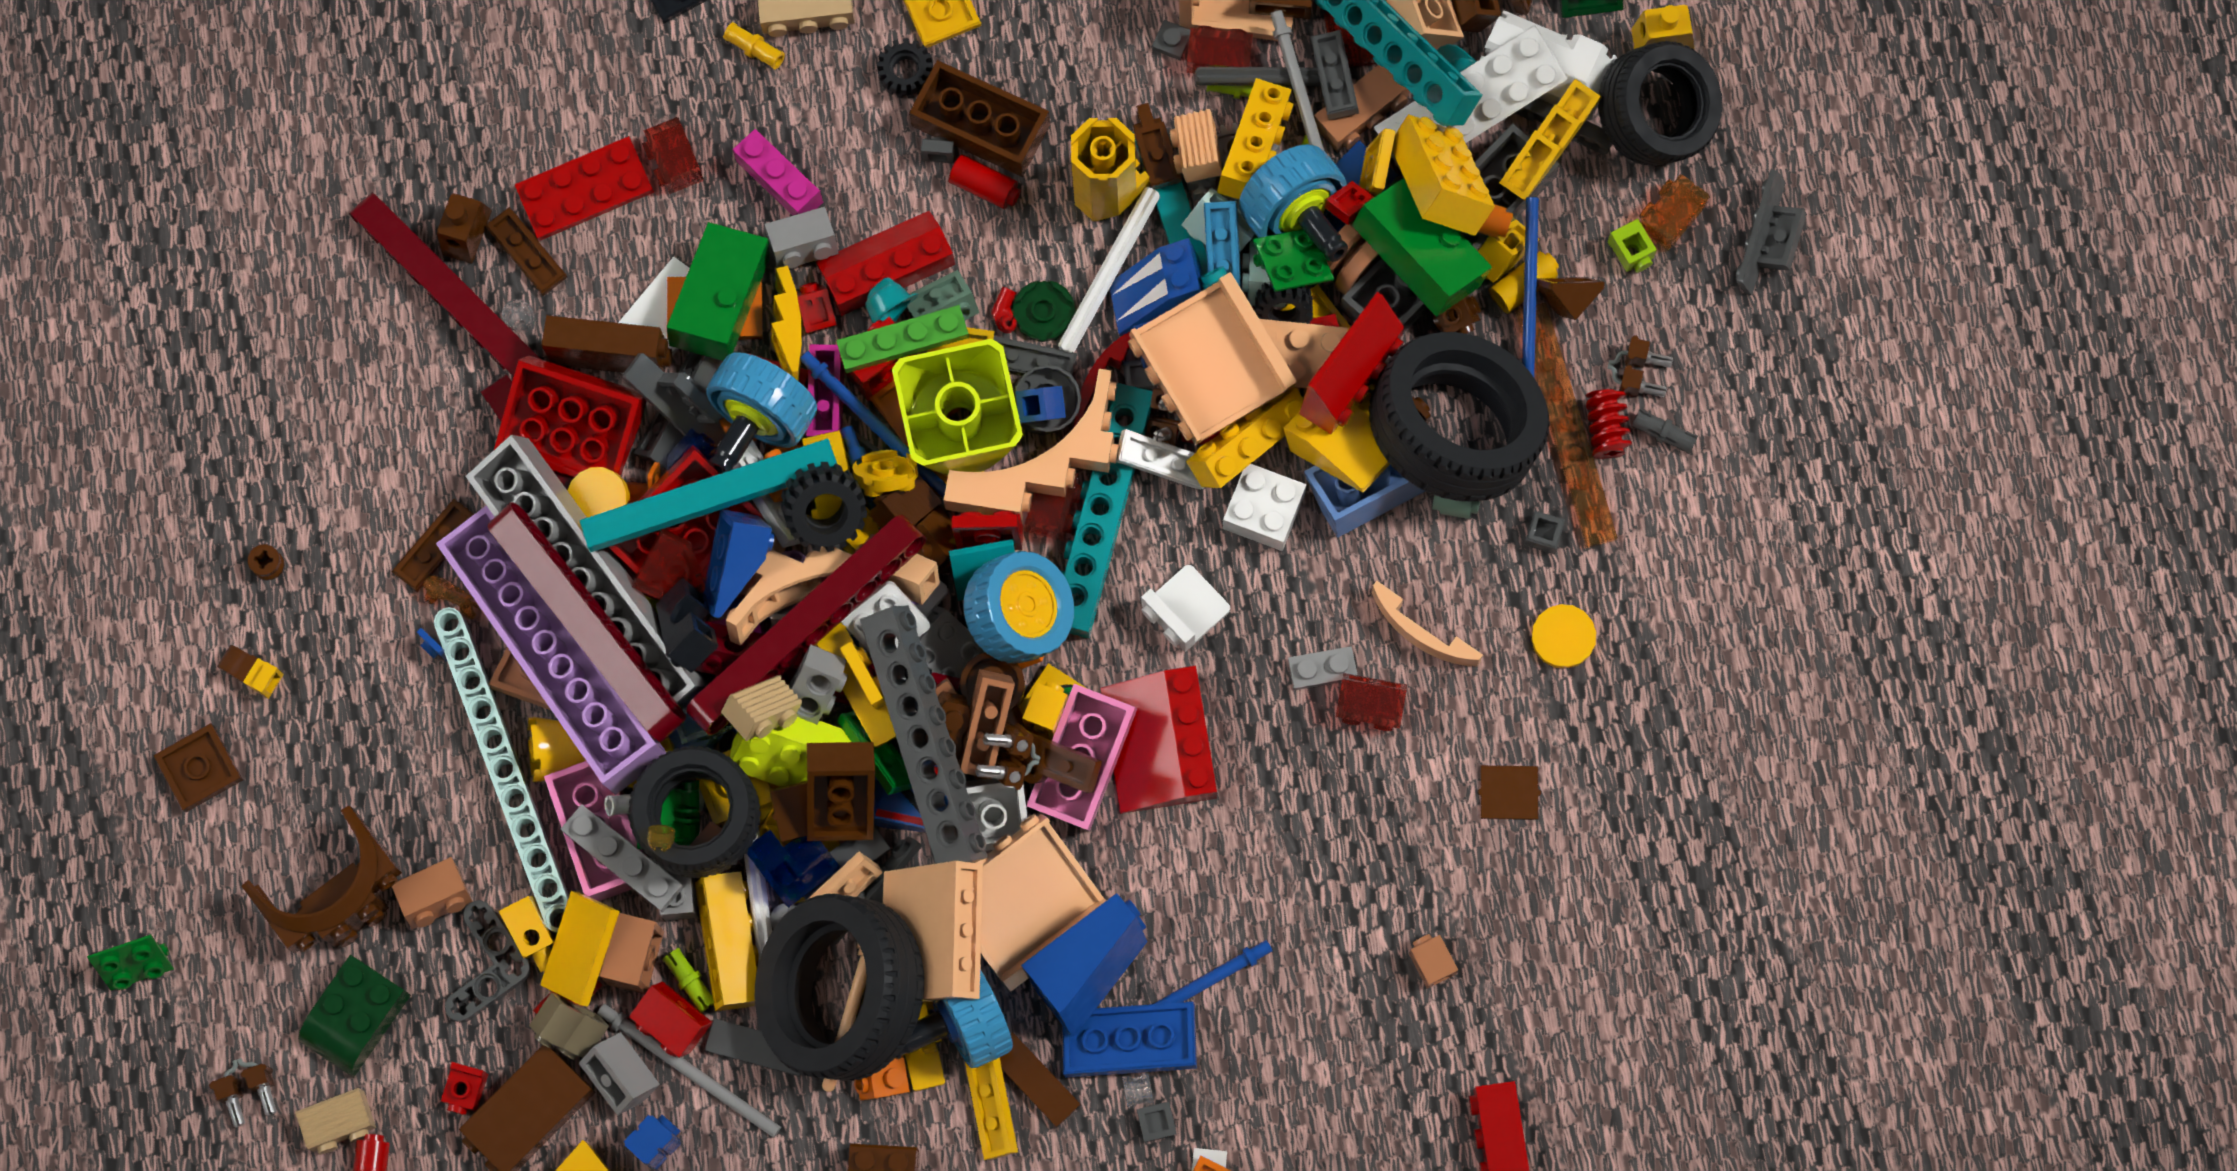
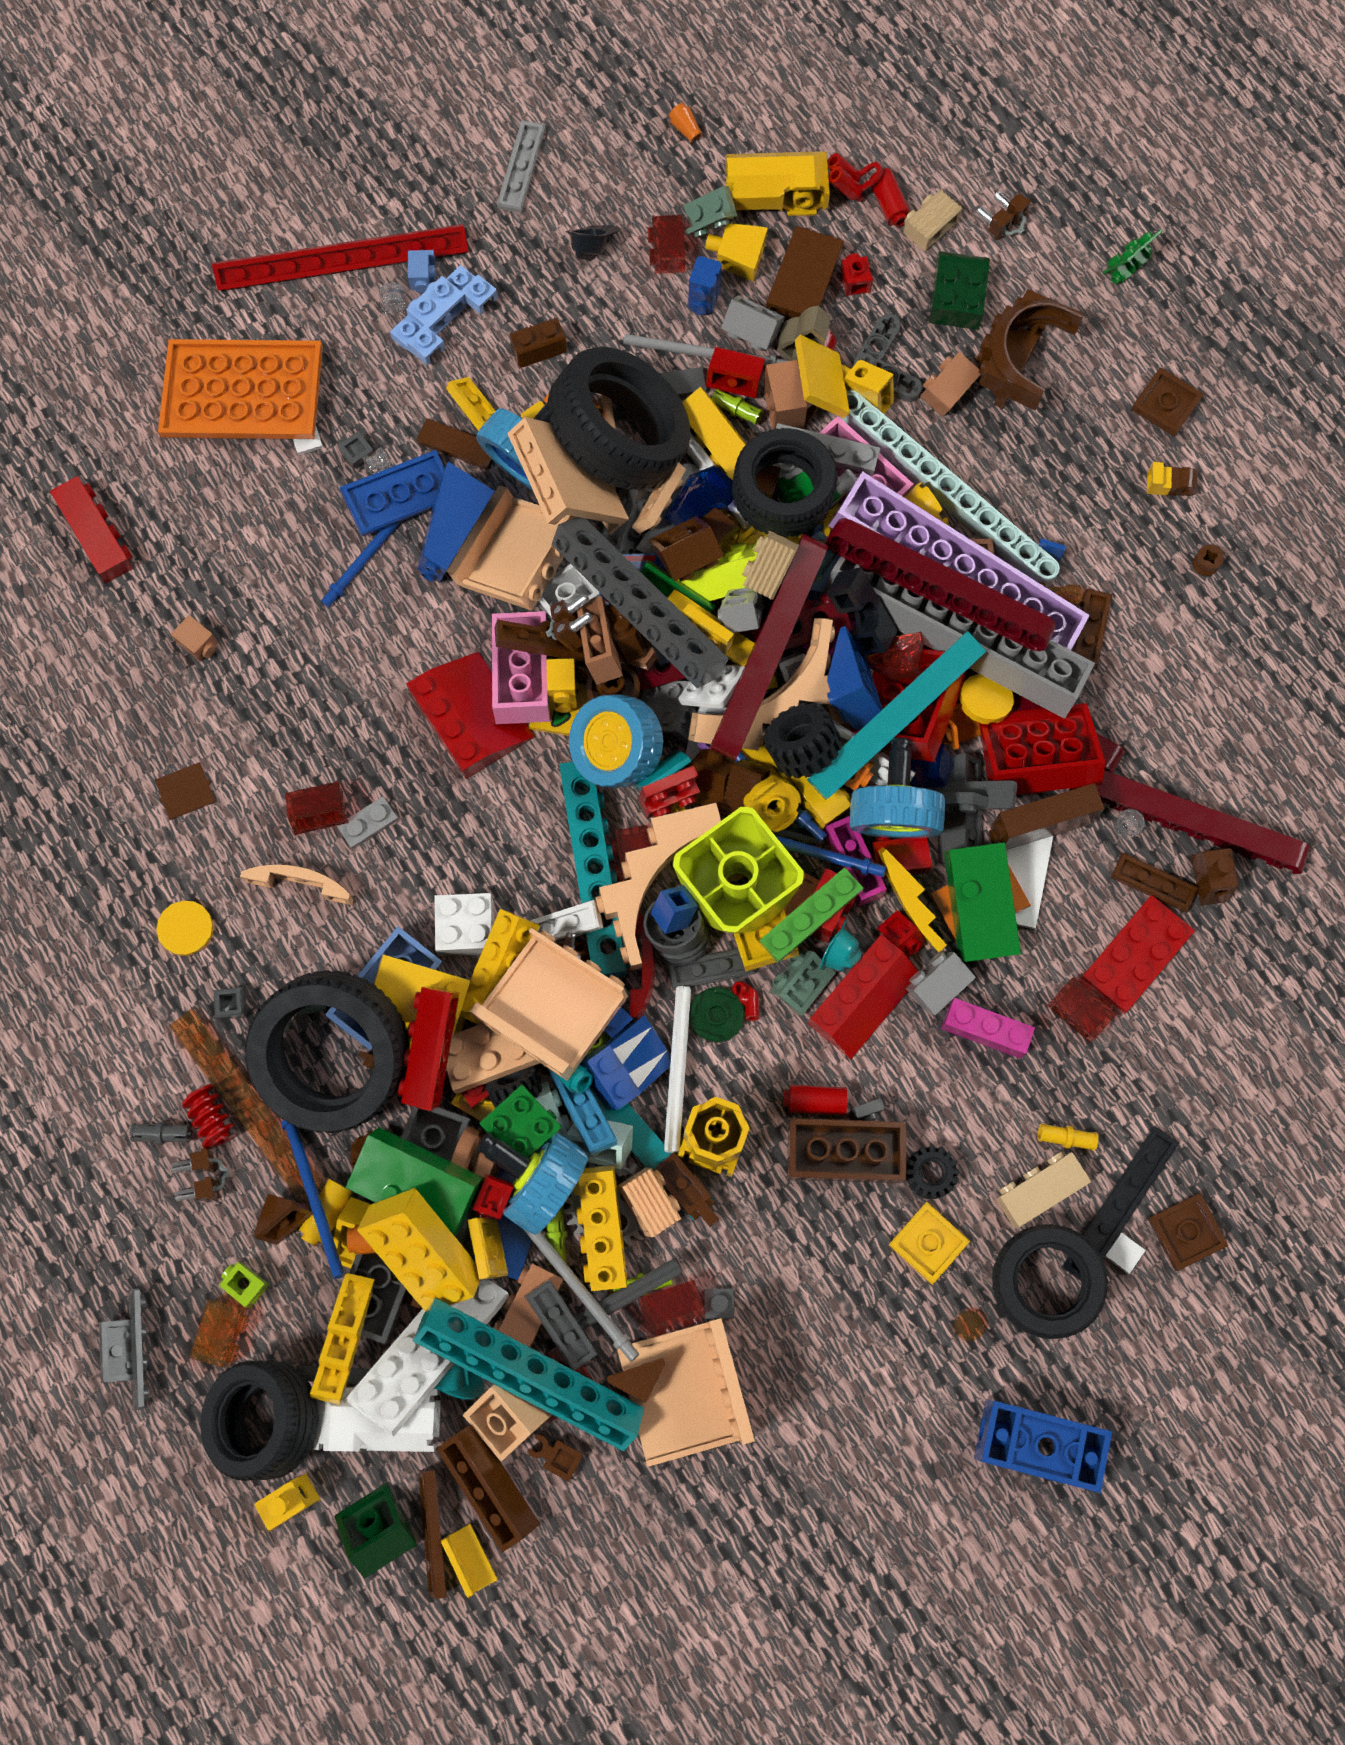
camera: 150 degrees right, 0 degrees up
(660, 836) = (801, 434): clear yellow hinge -> none
(1185, 607) = (494, 819): white bracket -> none

